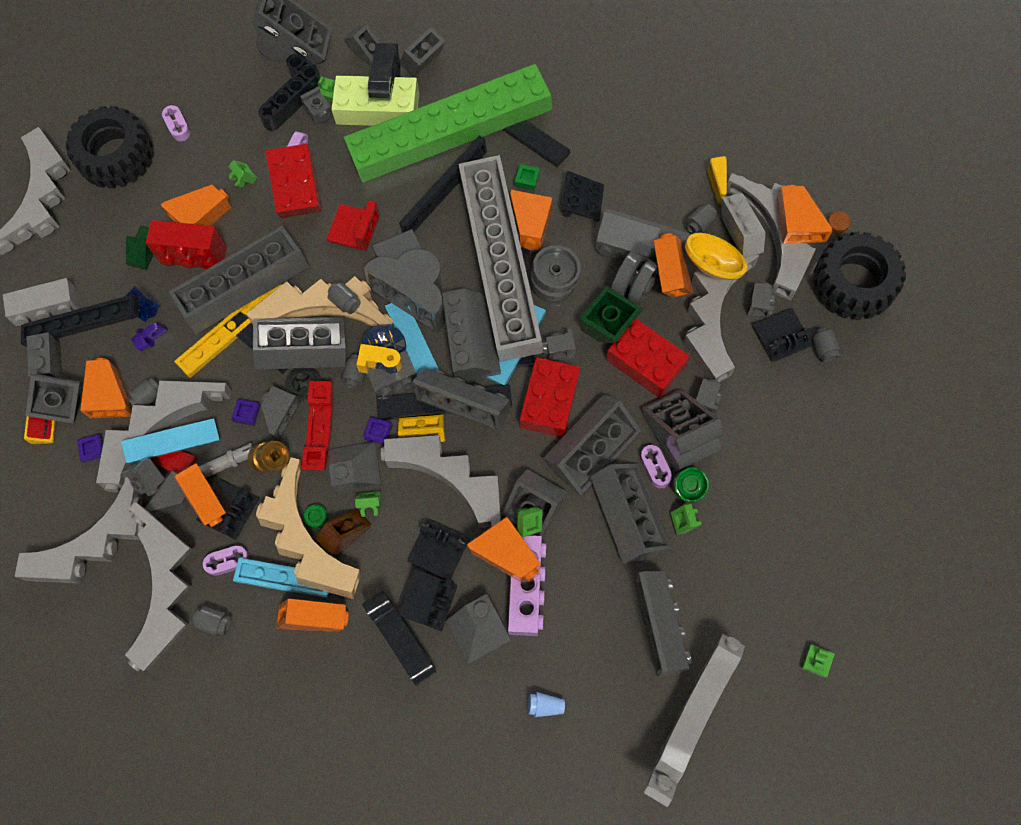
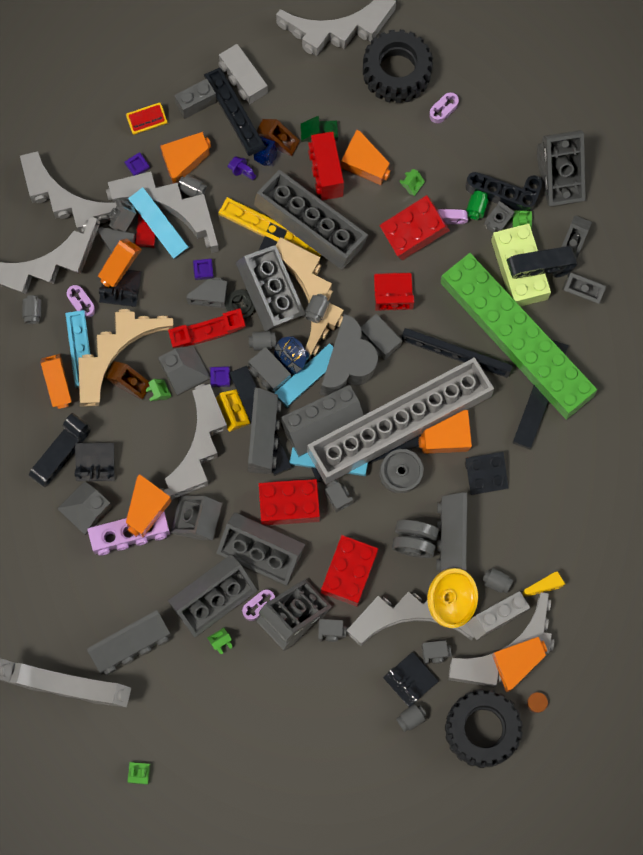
camera: 65 degrees right, 5 degrees up
(52, 398) = (162, 121): dark grey slope -> none
(121, 284) = (275, 131): none -> reddish brown slope
(226, 461) = (161, 274): light grey pin -> none
(268, 456) = (168, 301): pearl gold wheel -> none
(294, 121) = (477, 205): none -> green brick
(315, 516) = (135, 355): green tile -> none
(378, 358) = (274, 362): yellow leg -> none
(438, 549) = (137, 456): black hinge -> none
(527, 177) = (490, 420): green plate -> none
(529, 521) = (177, 516): bright green tile -> none
(545, 705) = (42, 573): light blue cone -> none
(609, 316) = (373, 527): dark green slope -> none
(672, 266) = (430, 563): orange slope -> none
(691, 484) = (249, 635): green hair -> none

